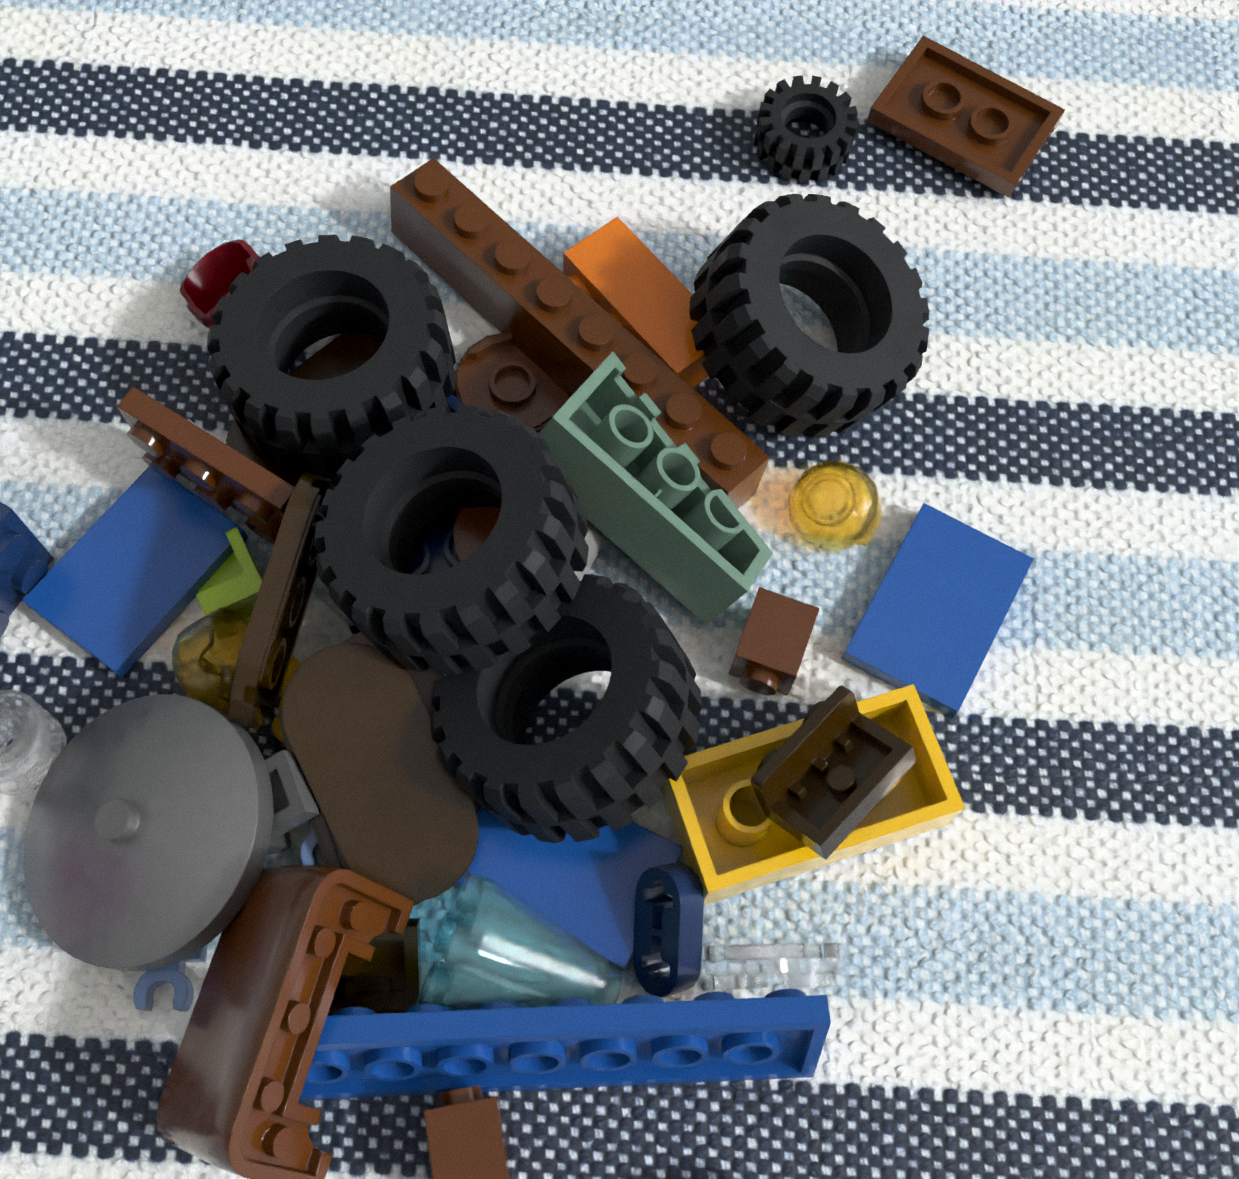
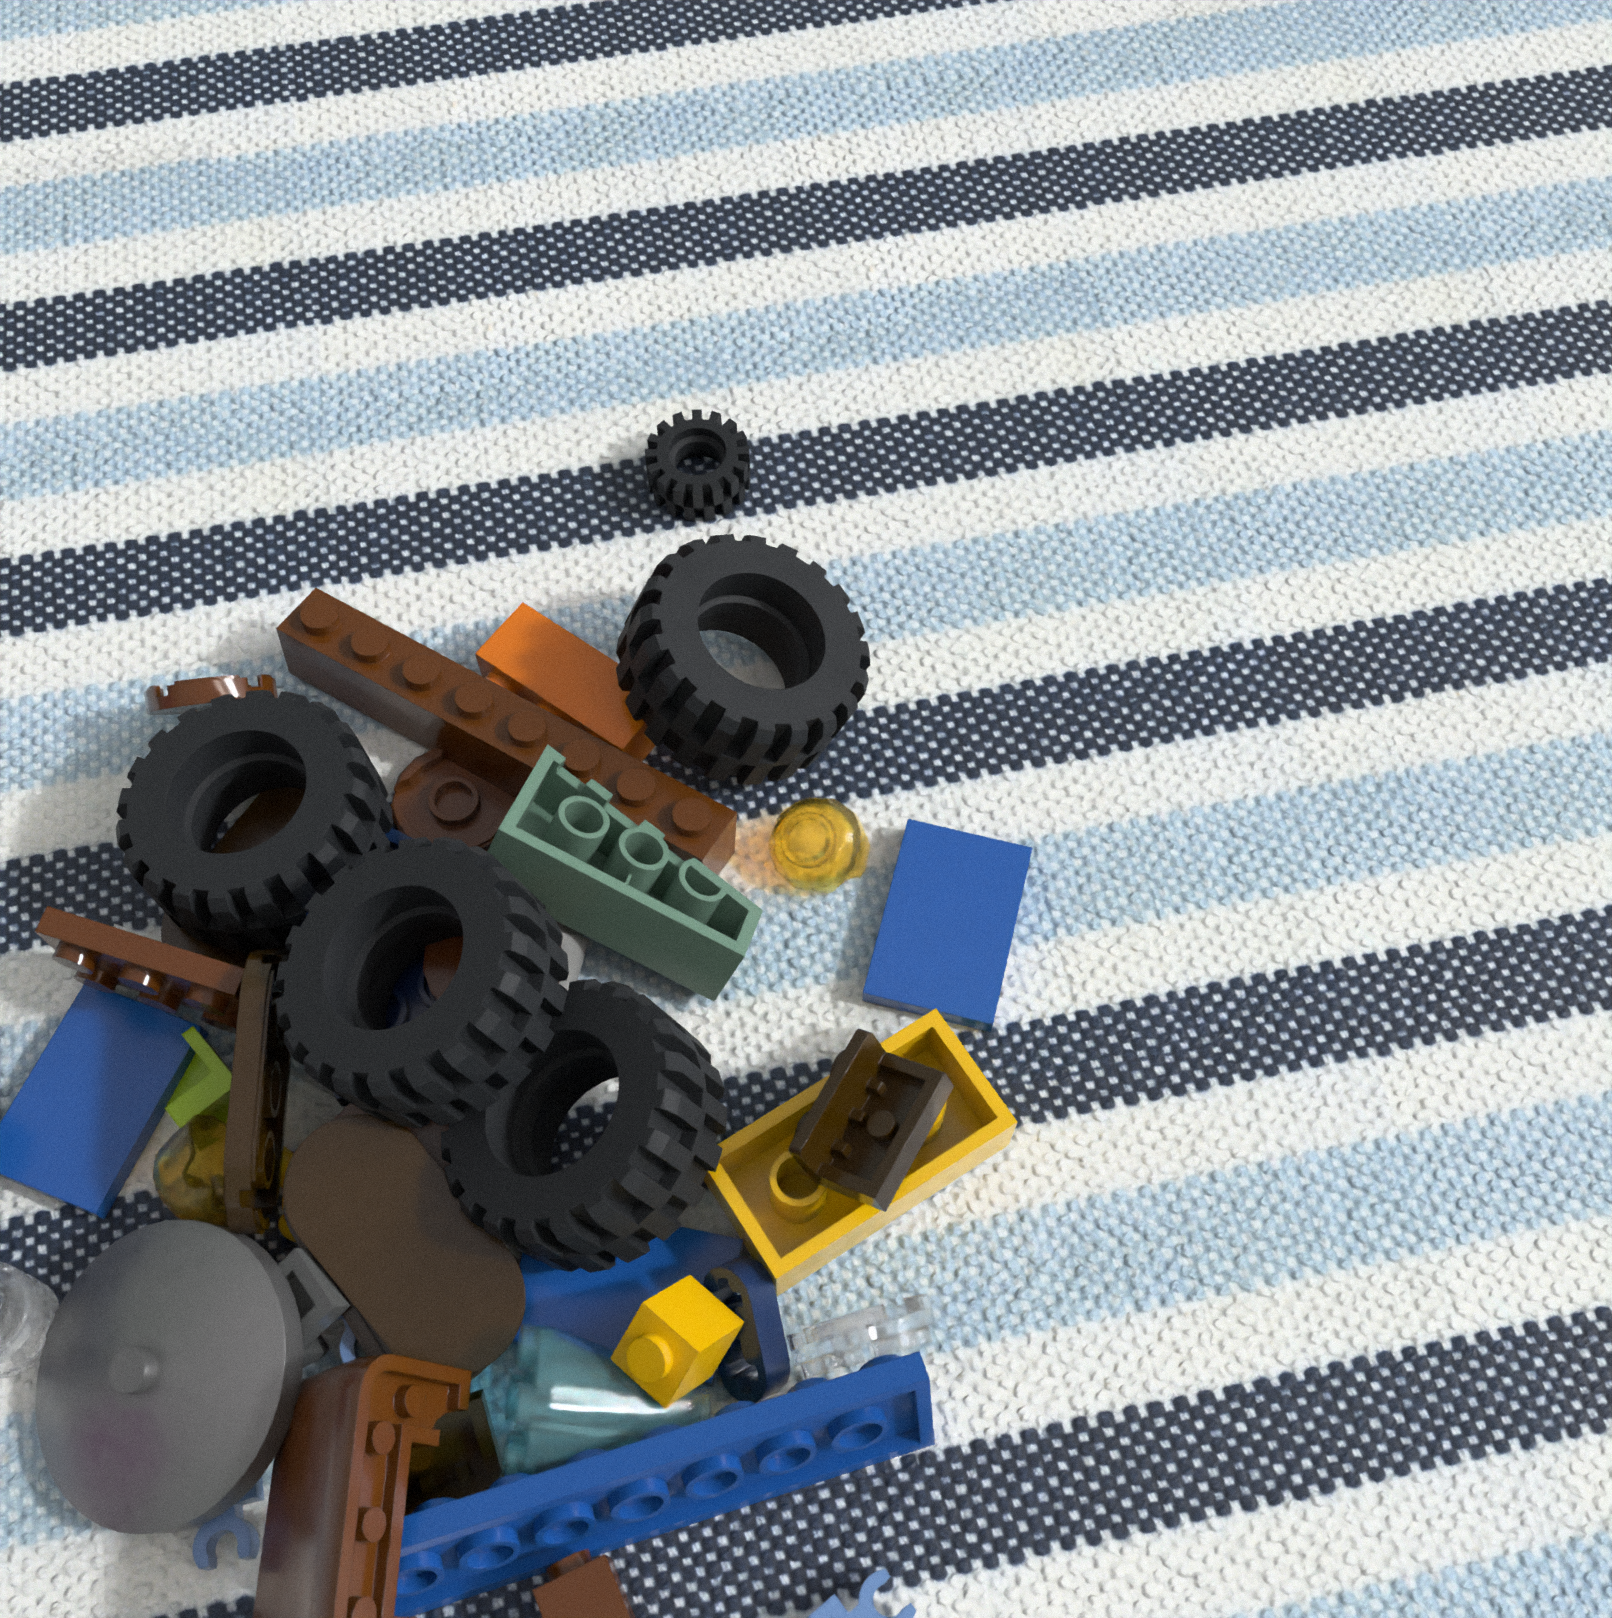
camera: 10 degrees left, 5 degrees down
(212, 276) = (107, 768): dark red hair -> none
(308, 228) = (199, 692): none -> reddish brown tile
(604, 923) = (676, 1340): none -> yellow brick
(773, 643) = (786, 1003): reddish brown brick -> none
(965, 116) = (858, 413): reddish brown plate -> none

